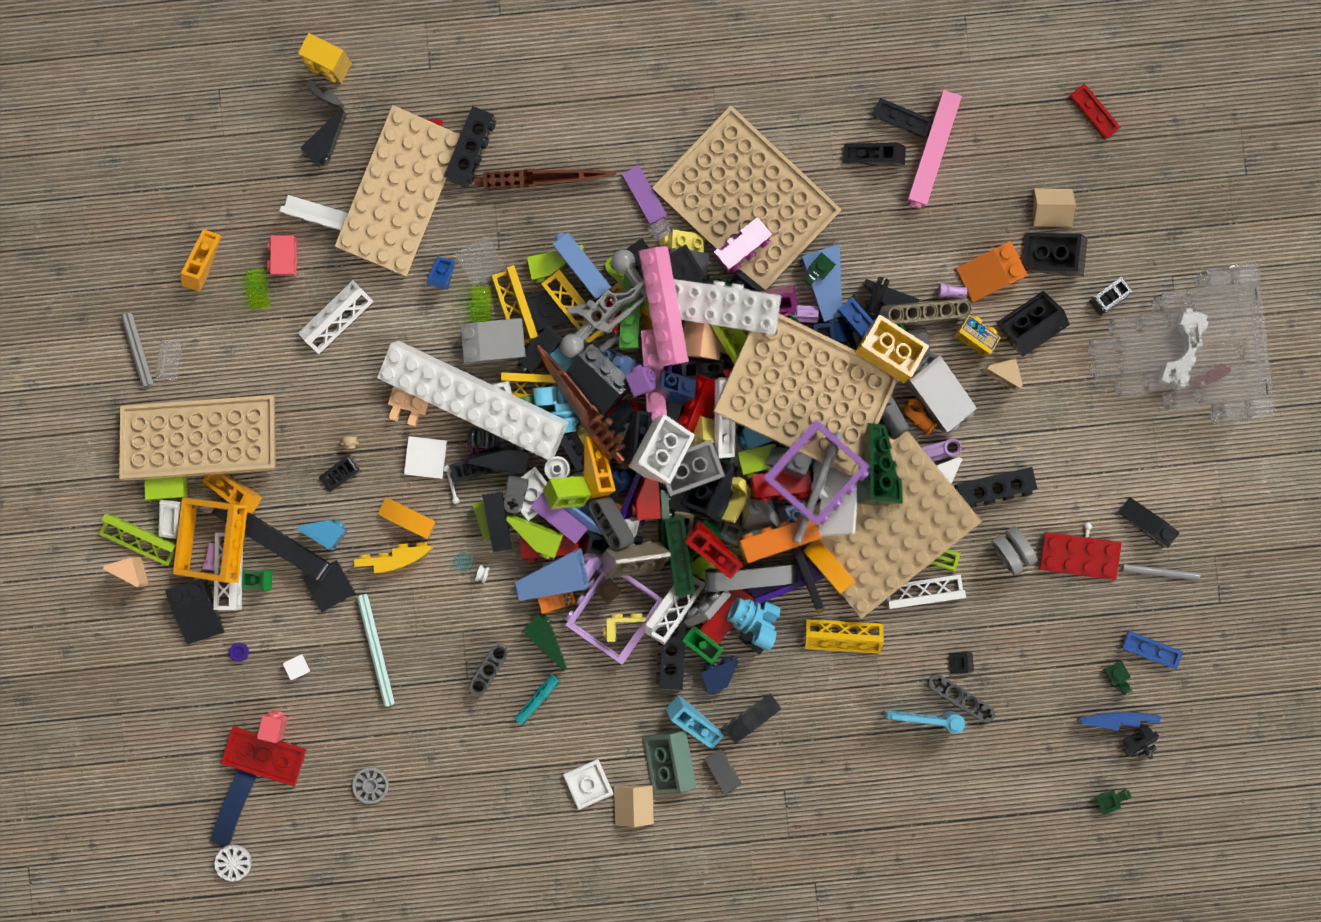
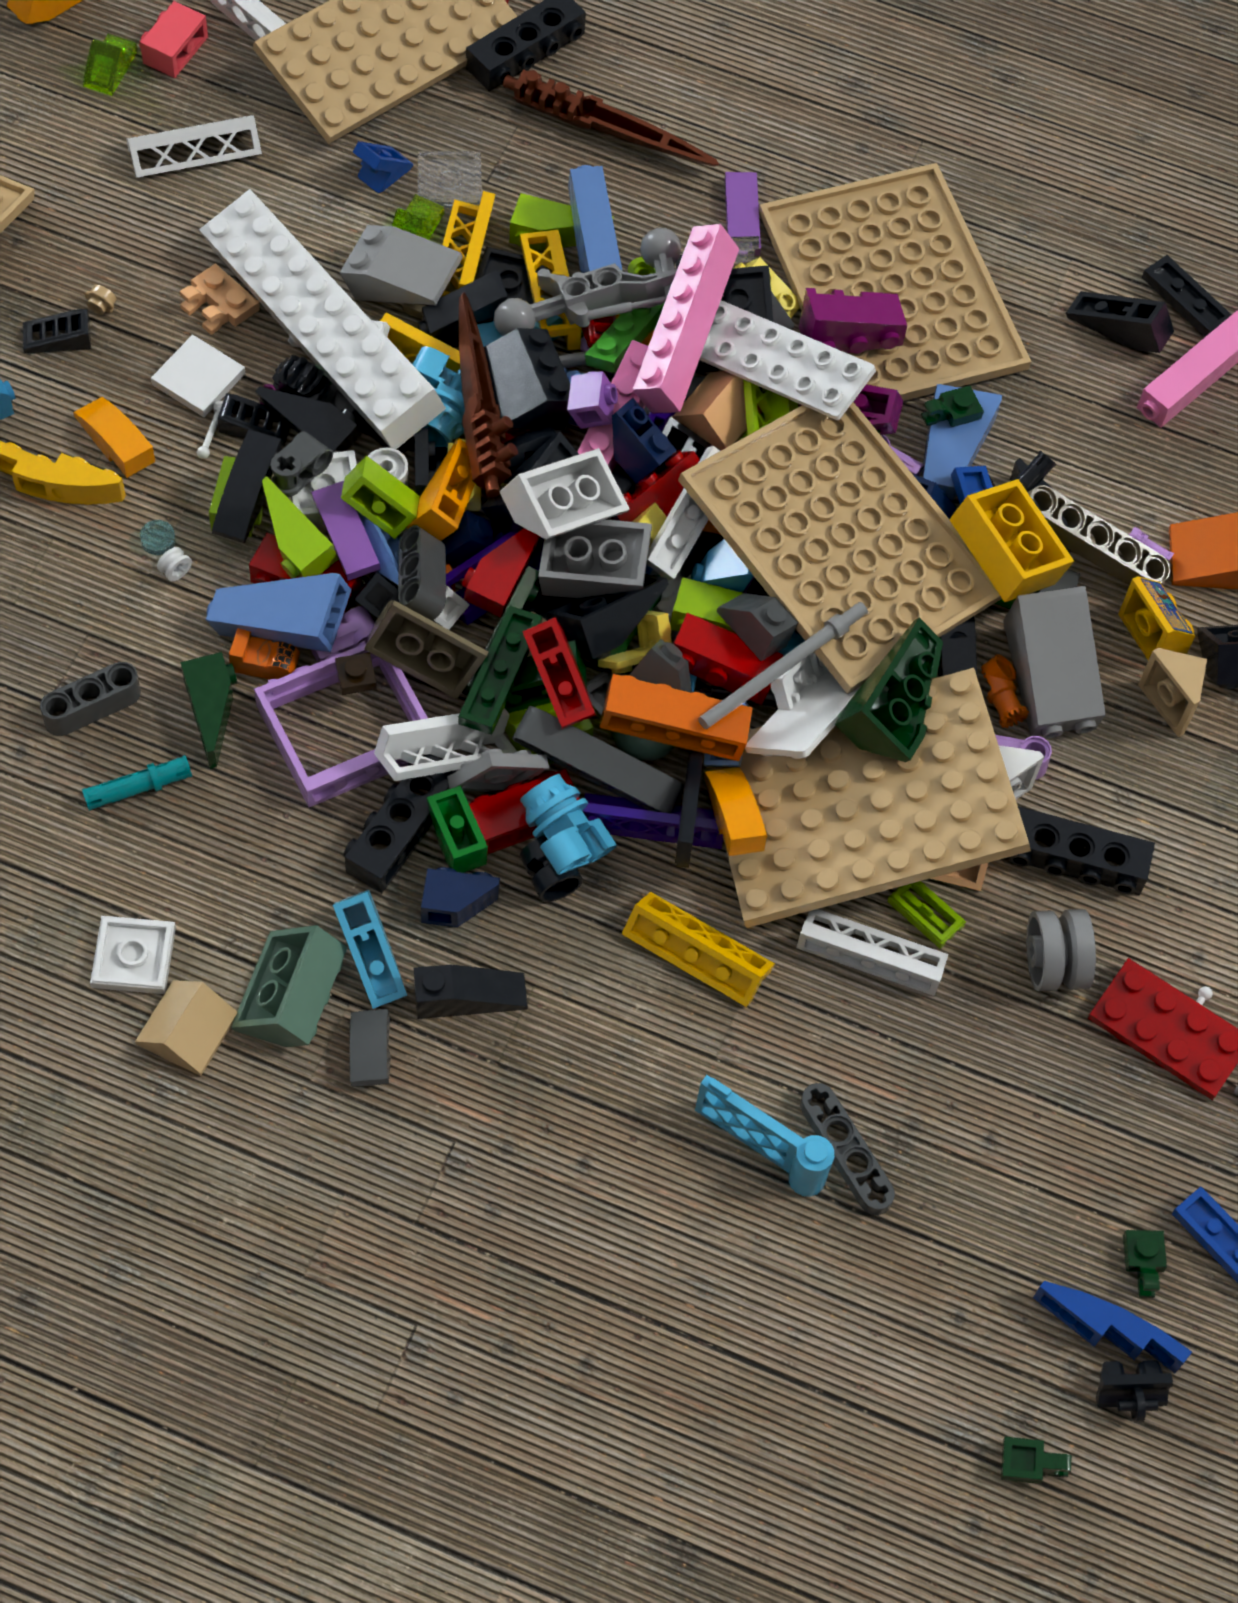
camera: 25 degrees right, 25 degrees down
(610, 630) = (333, 713): light yellow bracket -> none
(789, 455) = (781, 584): medium lavender window -> none
(961, 662) = (878, 1093): black slope -> none

